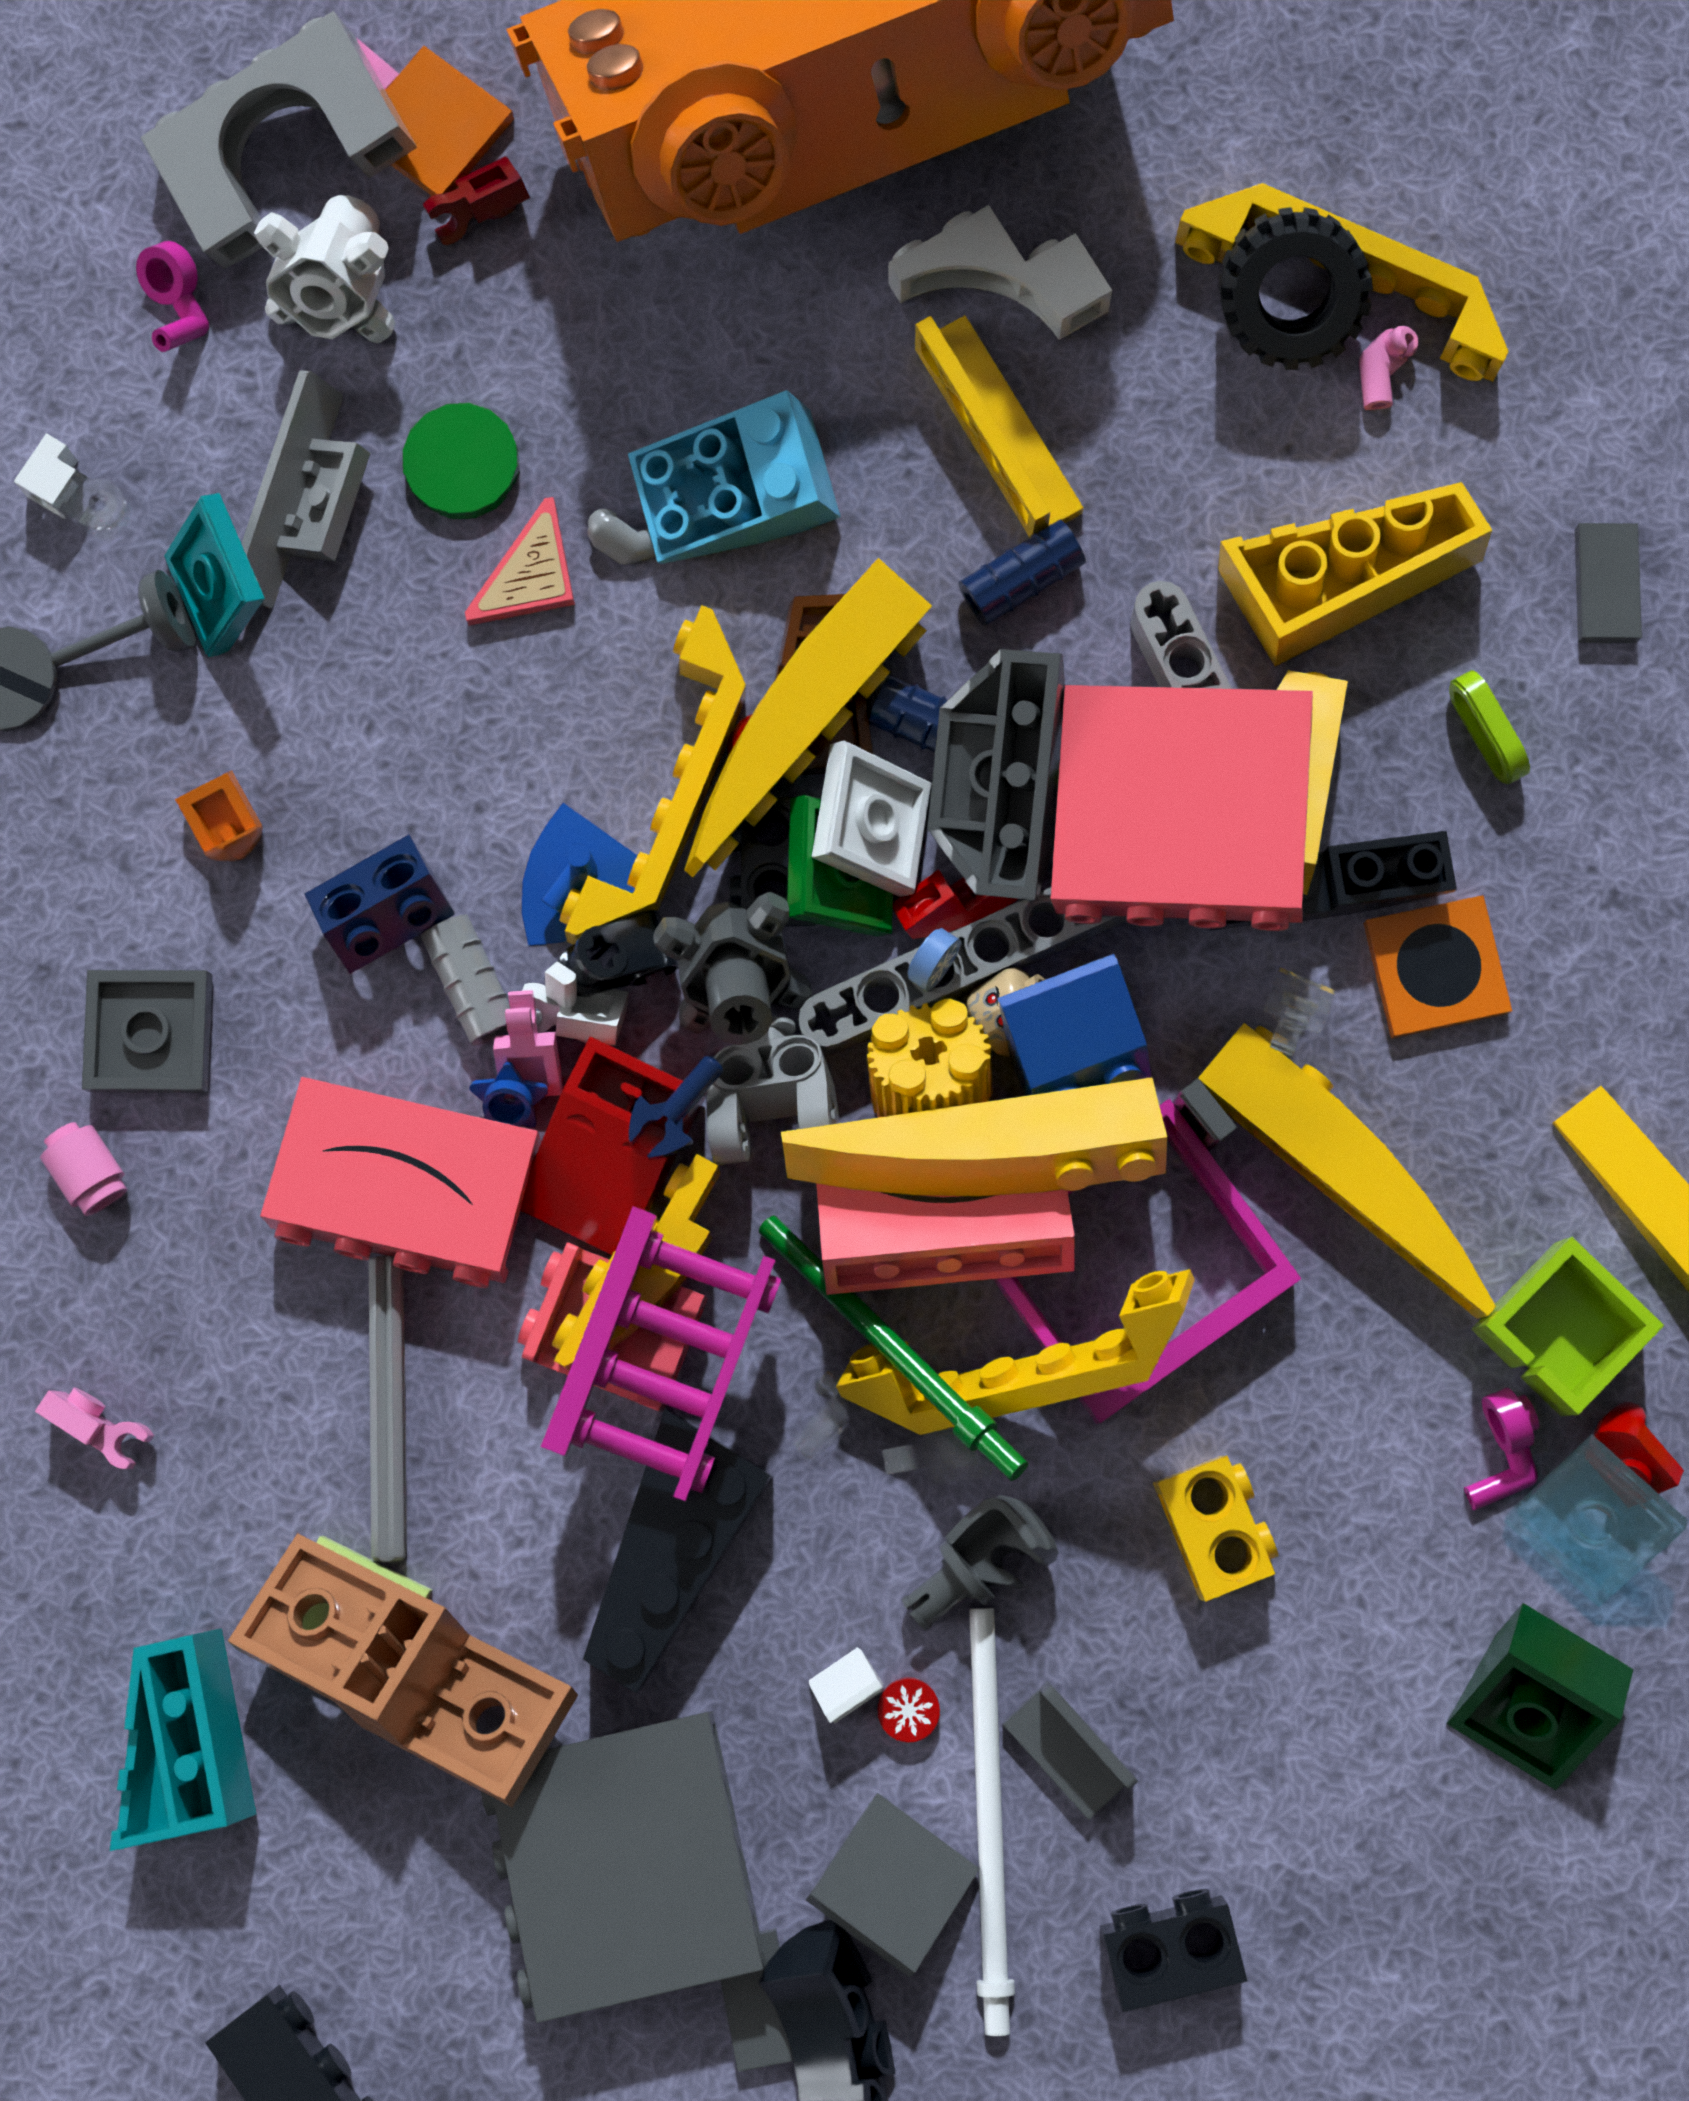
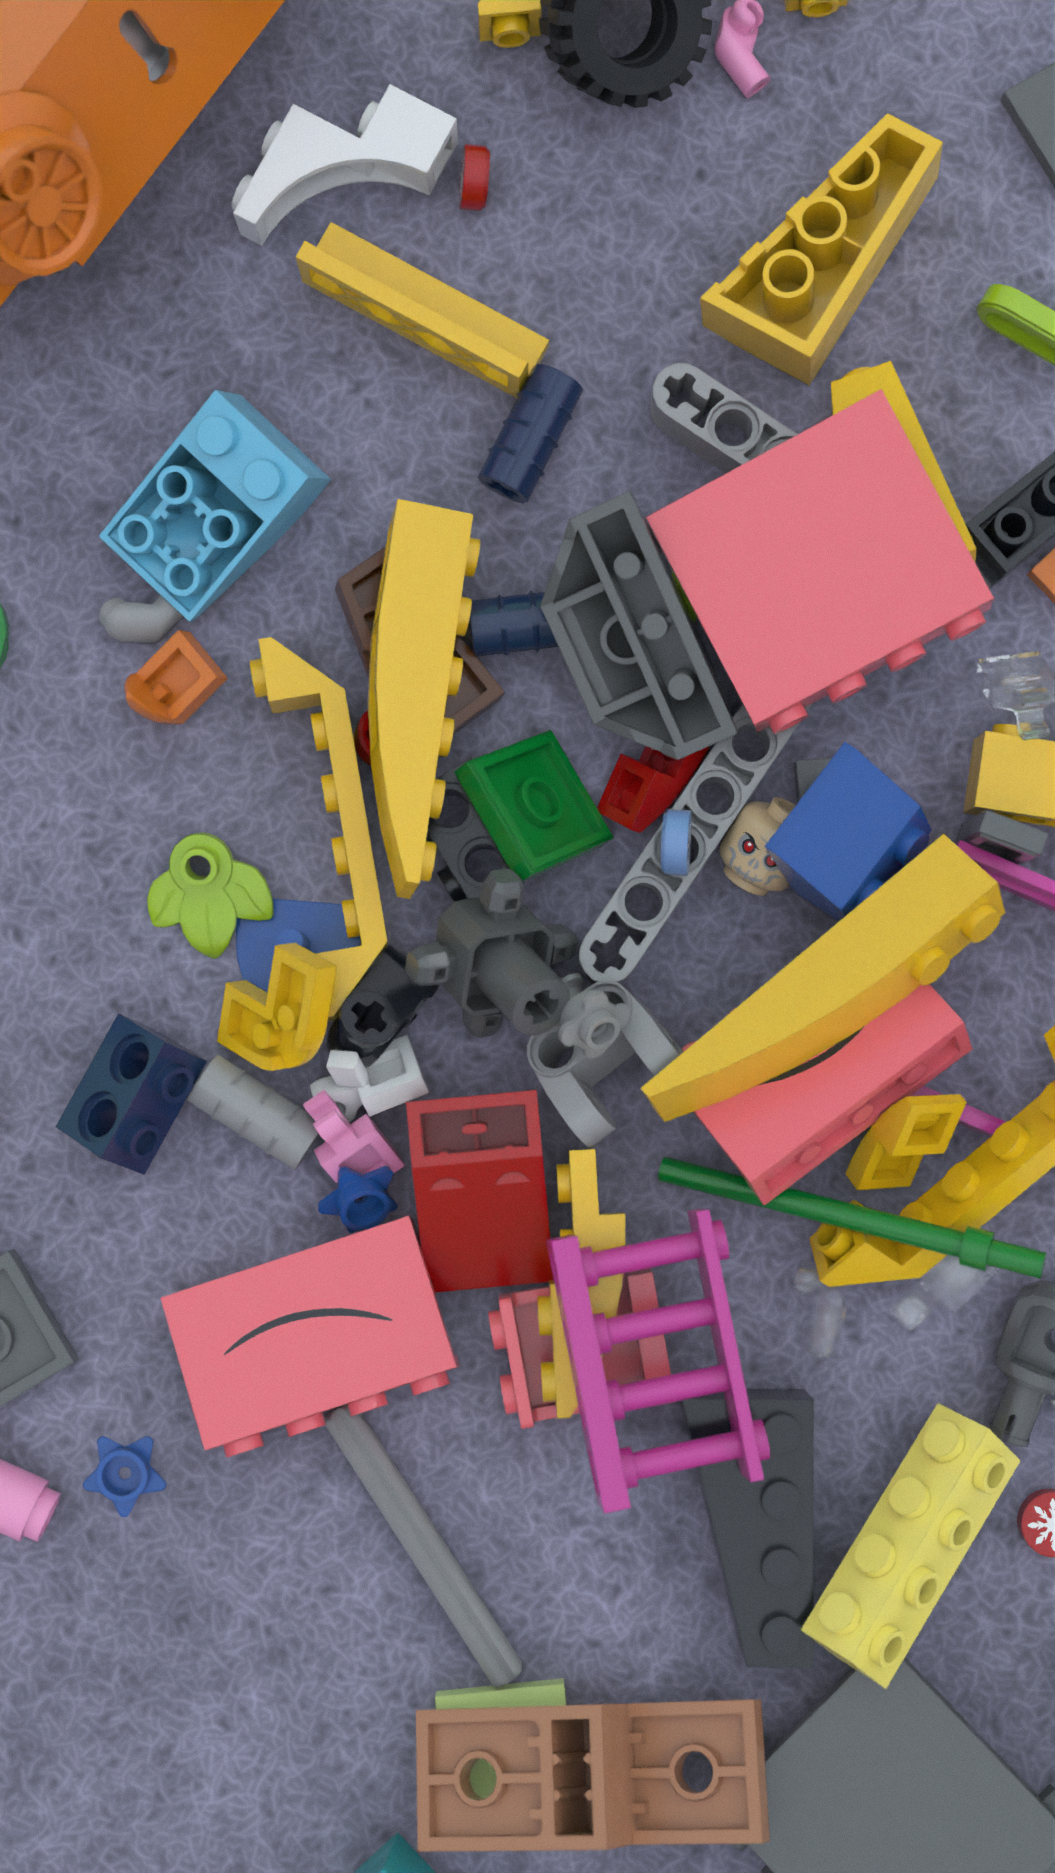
camera: 40 degrees left, 5 degrees up
(81, 1418) = (153, 1728): bright pink plate -> none
(170, 1200) = (107, 1479): none -> blue plate
(530, 575) = (76, 703): tile -> none
(534, 918) = (289, 1020): none -> yellow plate
(539, 794) = (209, 903): none -> lime plate
(615, 601) = (173, 681): none -> orange plate
(674, 1110) = (527, 1122): dark blue bar -> none
(771, 1047) = (592, 1022): none -> light grey plate
(778, 1644) = (911, 1544): none -> light yellow brick
(845, 1685) = (995, 1544): white slope -> none
(871, 819) = (536, 745): white tile -> none
(928, 1060) = (727, 939): yellow brick -> none
(972, 1311) = (901, 1138): none -> yellow slope
(1101, 345) = (474, 177): none -> red tile

